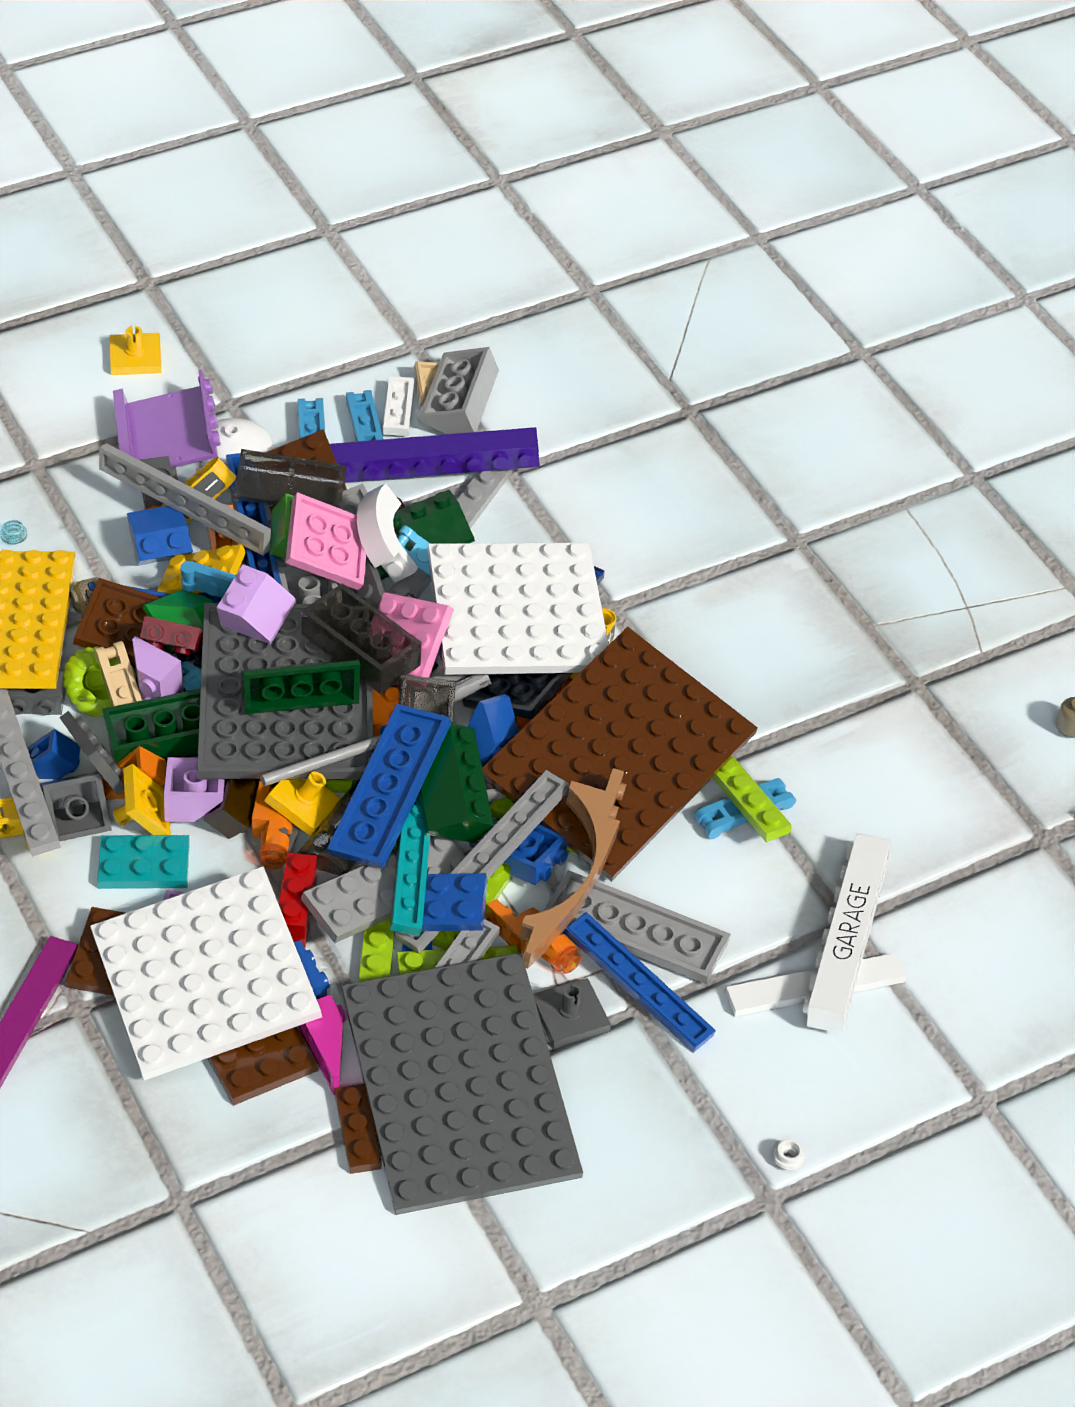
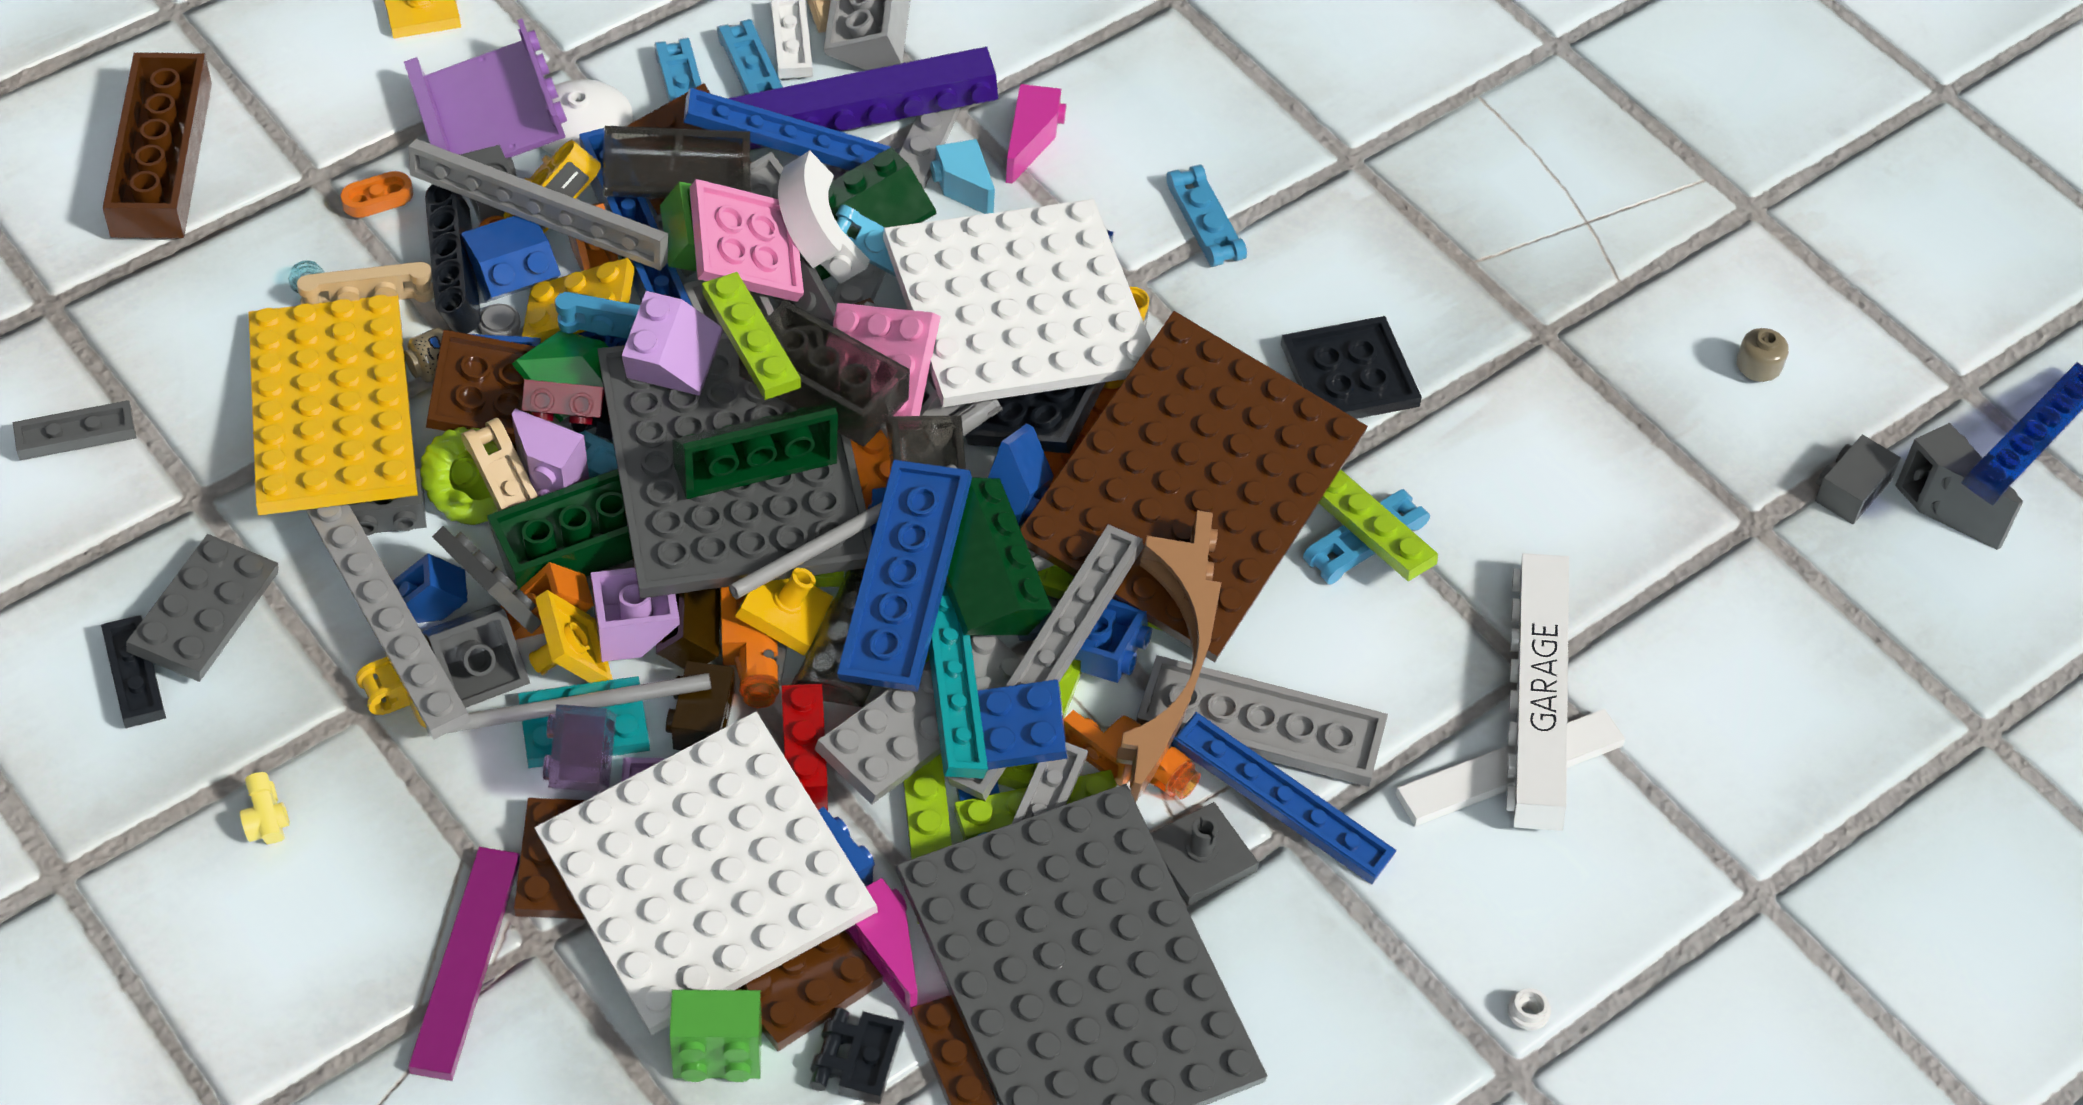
camera: 10 degrees left, 5 degrees up
(75, 481) = (377, 194): none -> orange plate
(82, 542) = (405, 279): none -> tan plate
(116, 541) = (452, 272): none -> black beam
(133, 876) = (580, 749): none -> clear purple brick
(144, 578) = (499, 320): none -> light grey piece
(144, 846) = (595, 699): none -> light grey piece
(188, 1084) = (716, 1034): none -> bright green brick
(230, 856) = (703, 711): none -> dark brown brick
(295, 1120) = (869, 1058): none -> black plate
(311, 604) = (751, 335): none -> lime plate
(370, 468) = (778, 130): none -> blue plate
(502, 516) = (964, 175): none -> medium azure slope
(562, 490) = (1033, 127): none -> dark pink slope
(677, 568) = (1205, 216): none -> dark azure plate
(762, 688) = (1353, 367): none -> black plate

